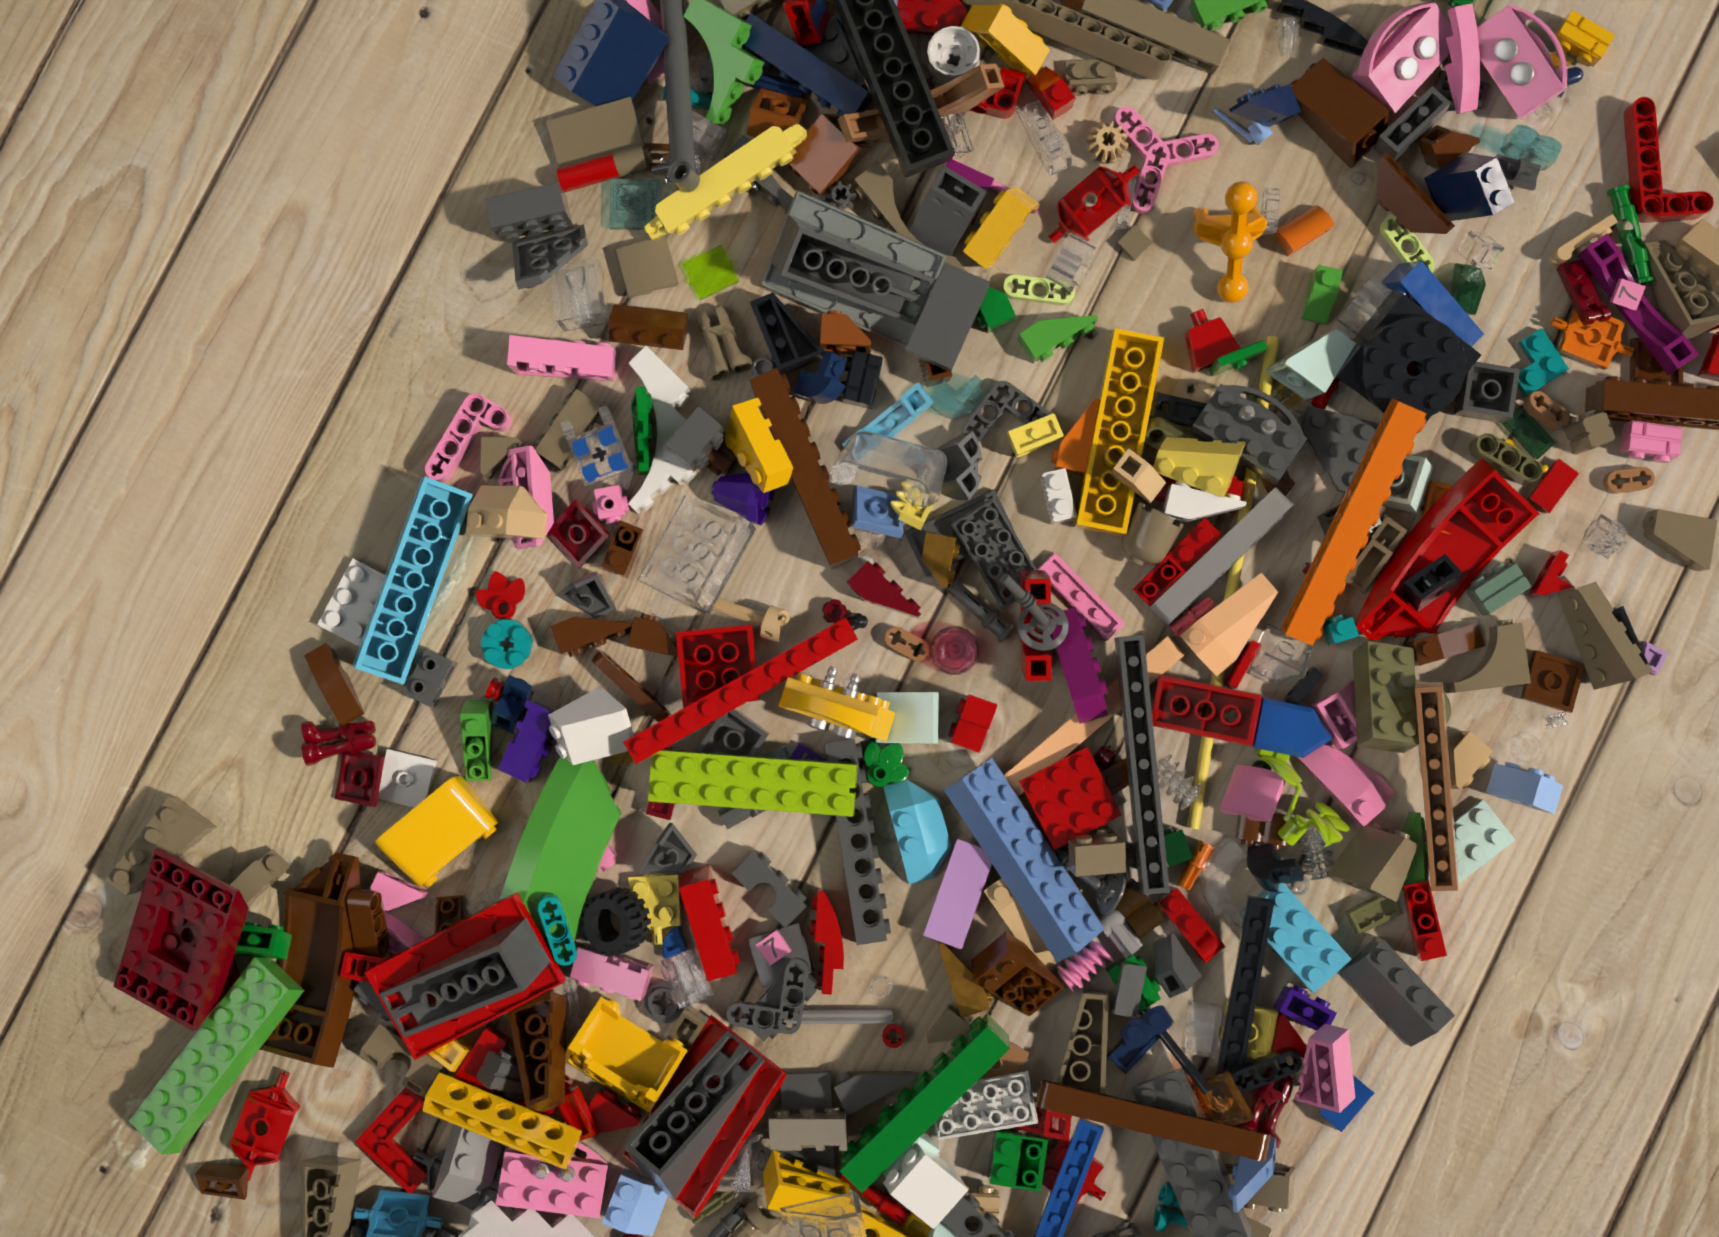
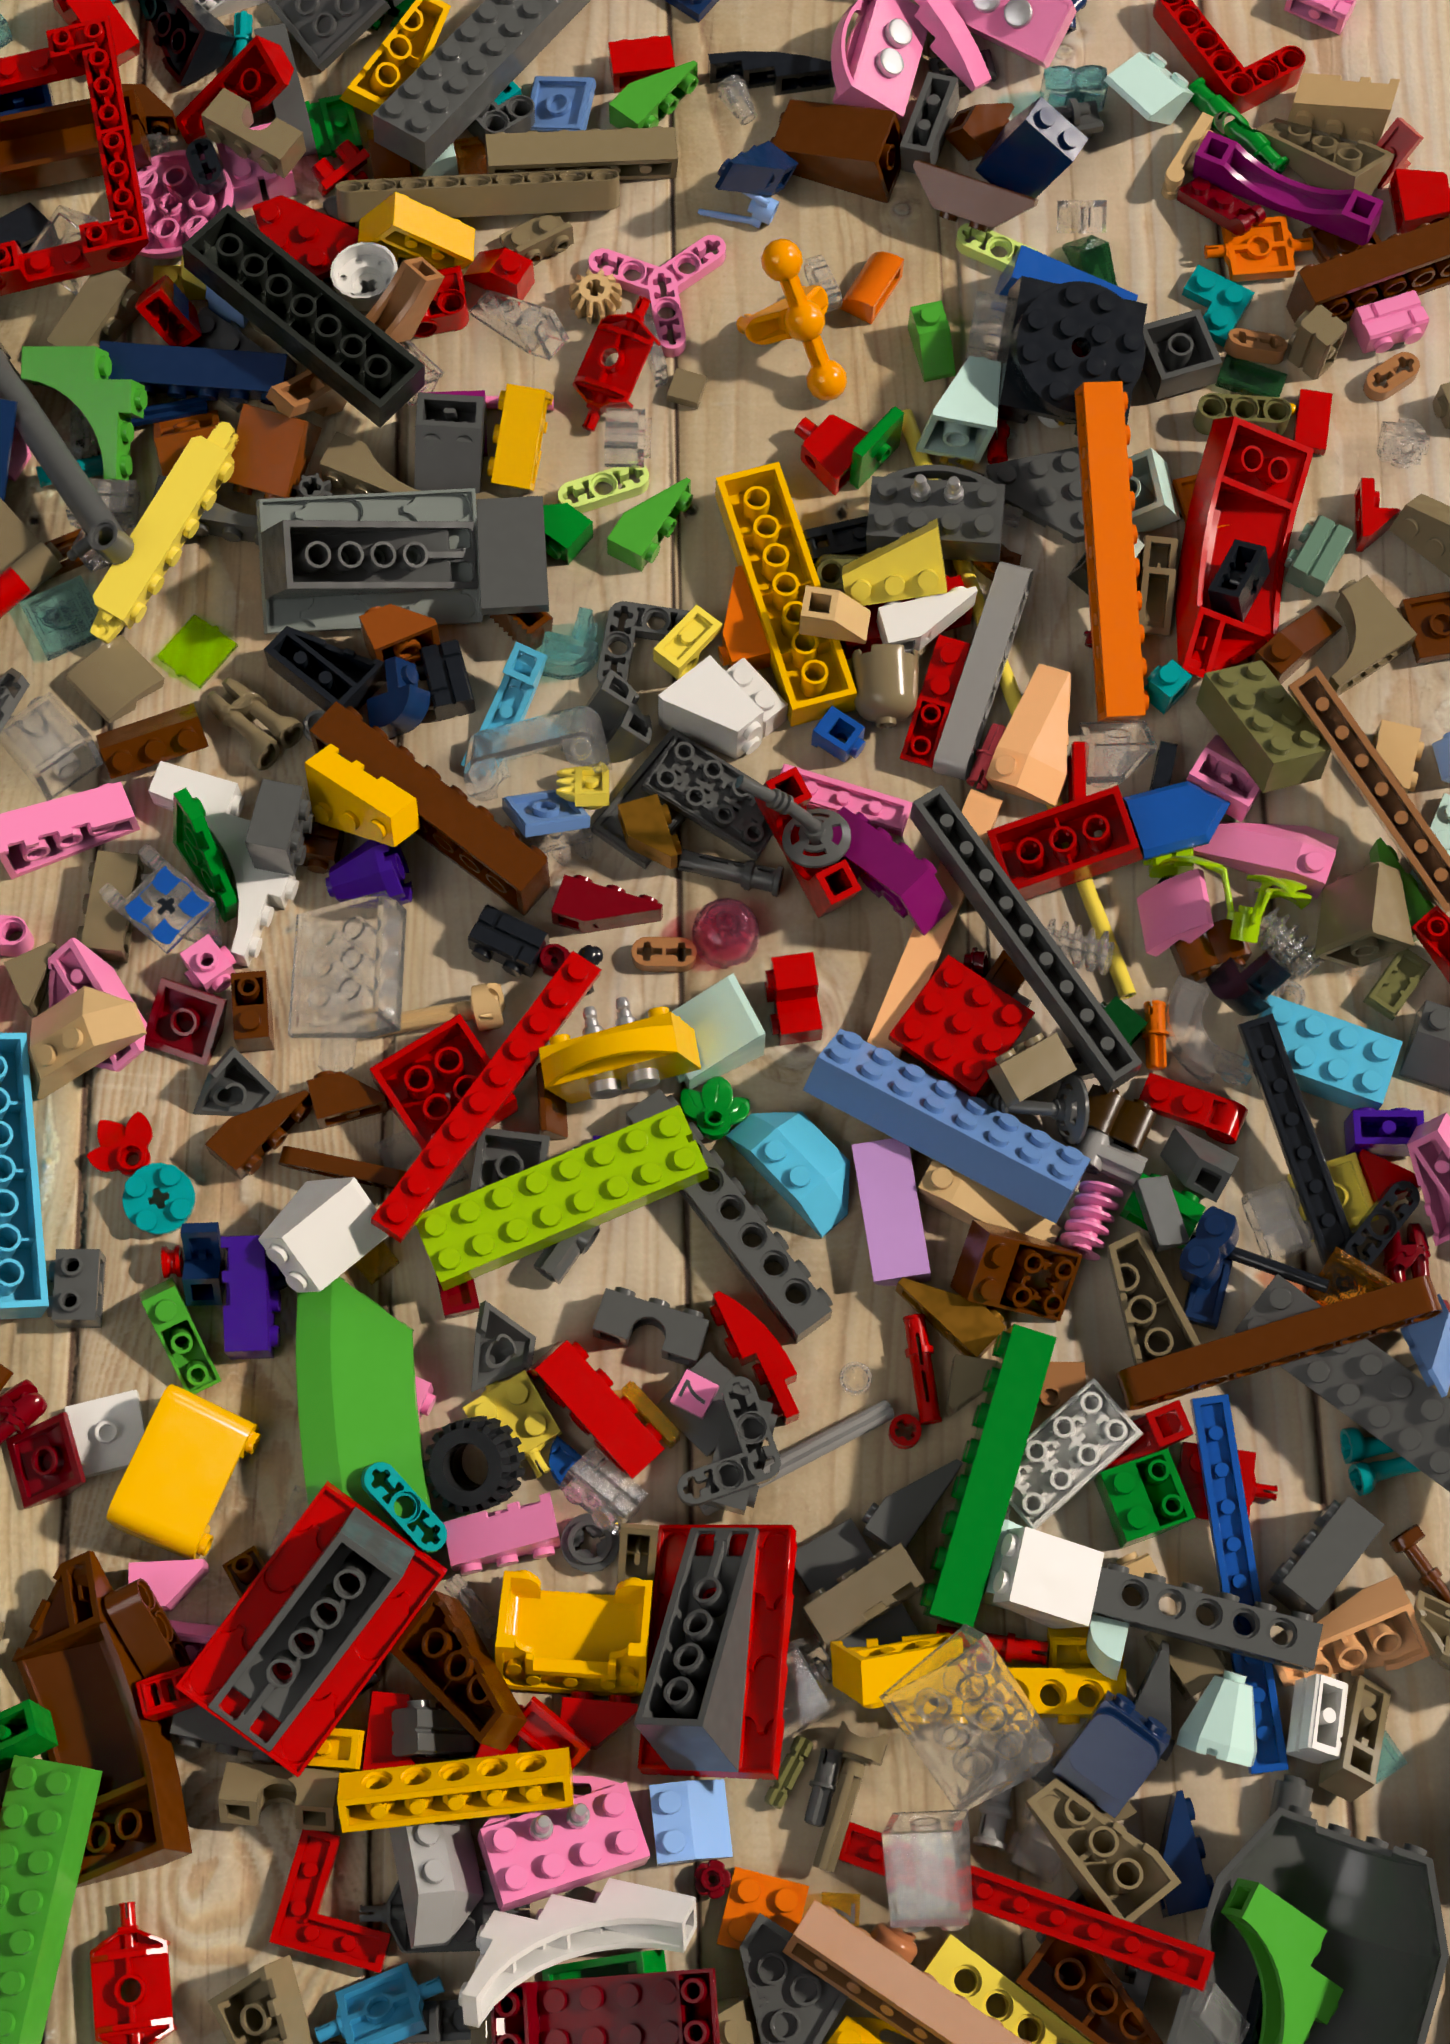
camera: 35 degrees left, 15 degrees down
(741, 943) = (651, 1414): none -> clear yellow tile
(778, 717) = (551, 1110): none -> reddish brown slope
(810, 585) = (507, 942): none -> black brick
(935, 974) = (916, 1327): none -> red pin
(1025, 495) = (712, 710): none -> white slope
(1103, 543) = (839, 725): none -> blue brick
(1585, 176) = (1151, 87): none -> light aqua slope
(1627, 294) = (1269, 182): bright pink tile -> none

